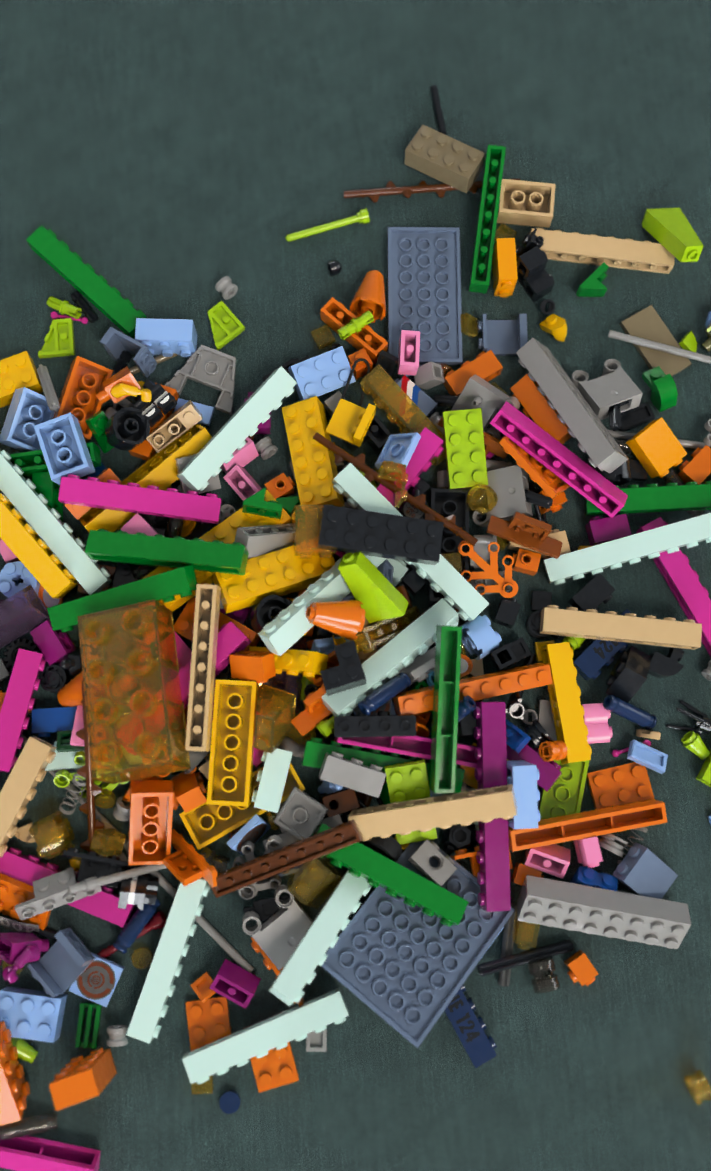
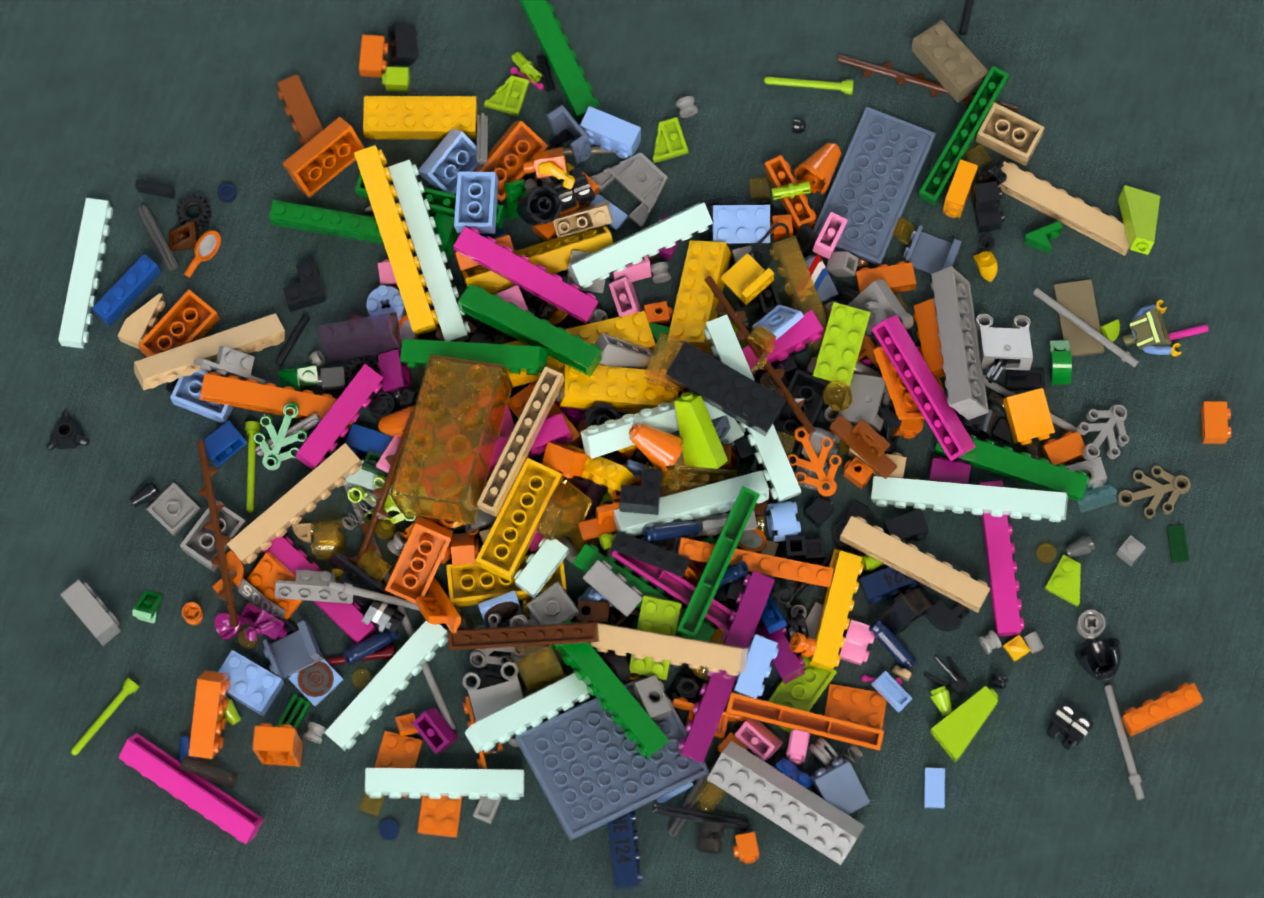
camera: 30 degrees right, 5 degrees down
(257, 505) = (629, 321): green slope -> none

